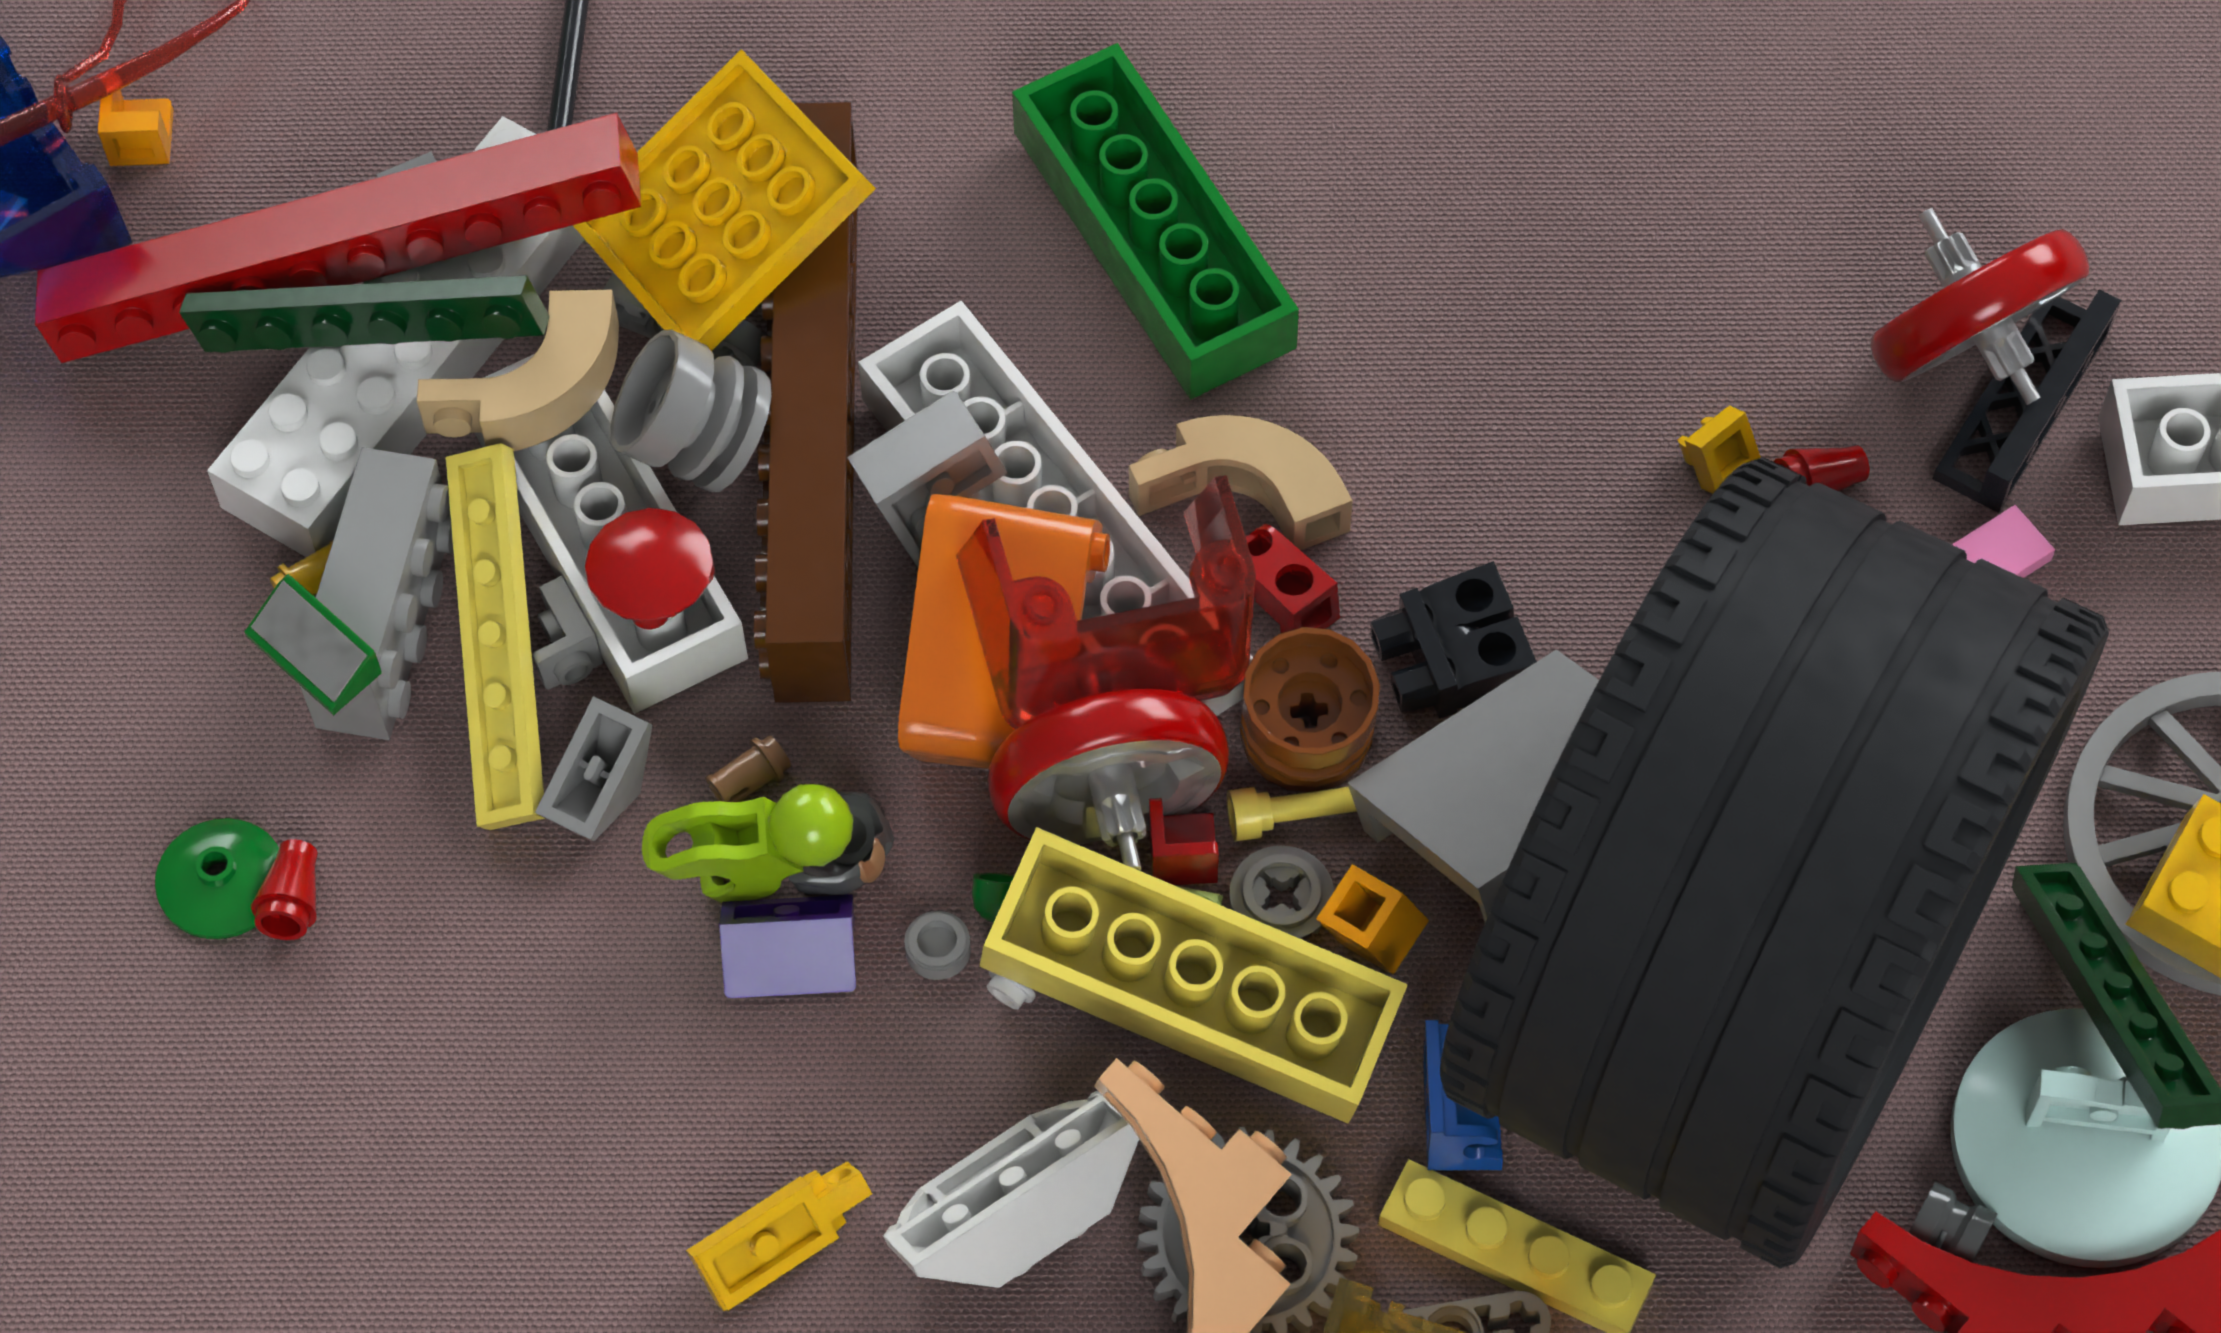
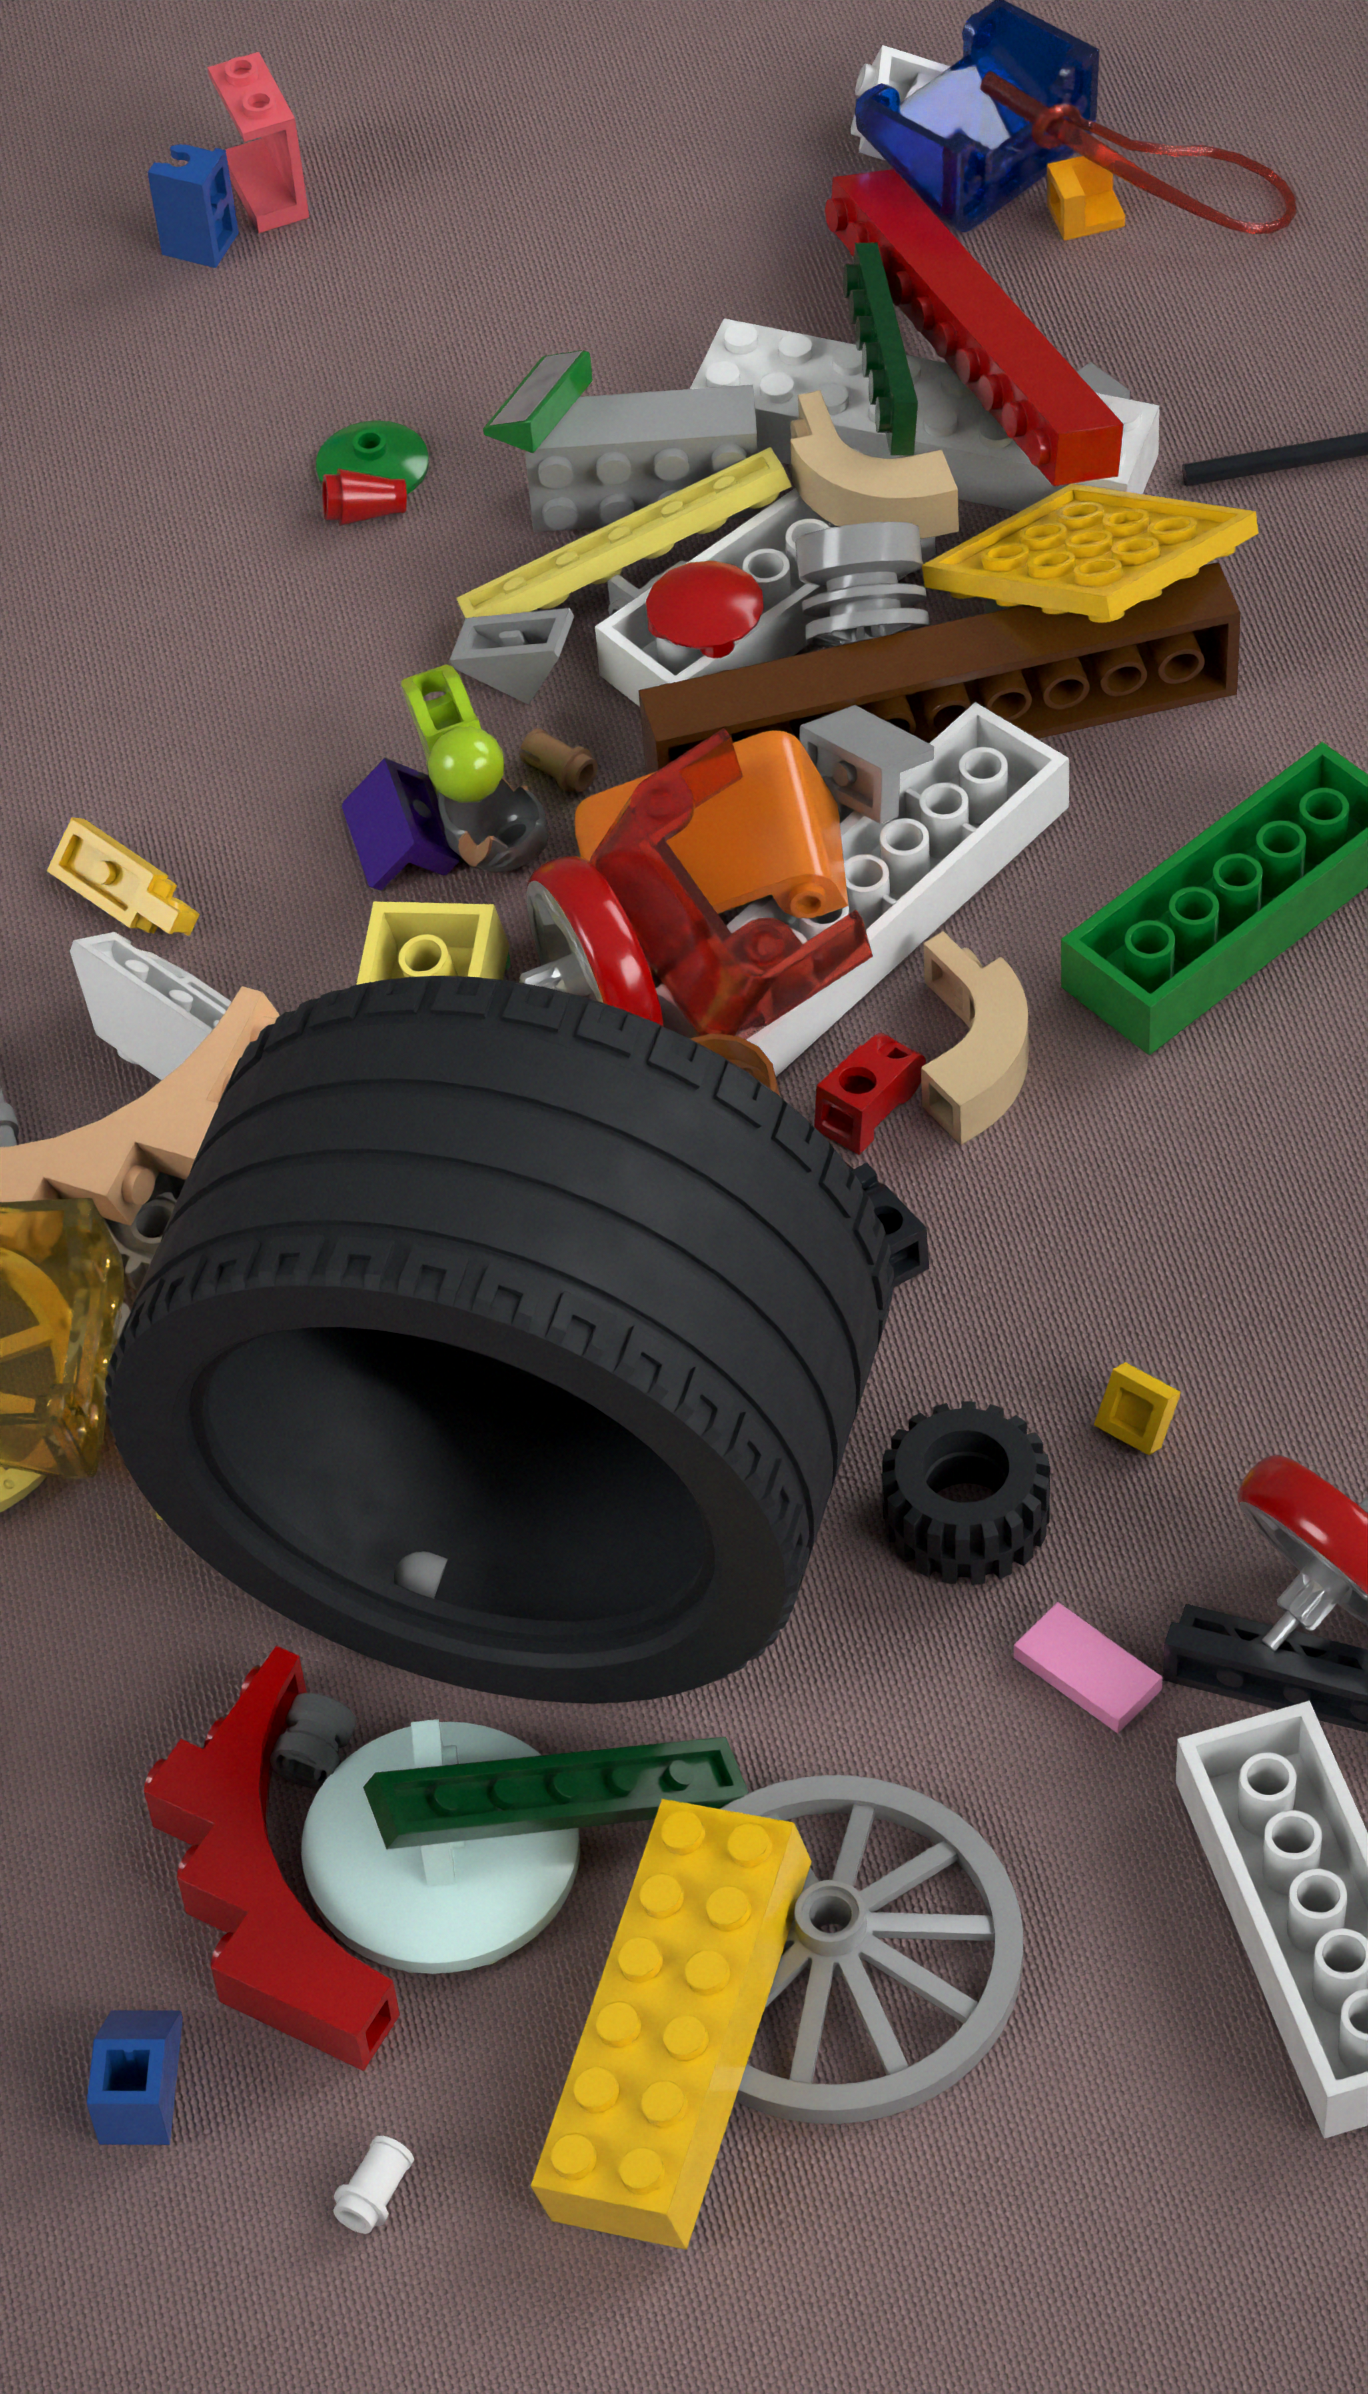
camera: 80 degrees right, 10 degrees down
(1829, 466) = (1141, 1498): red cone -> none

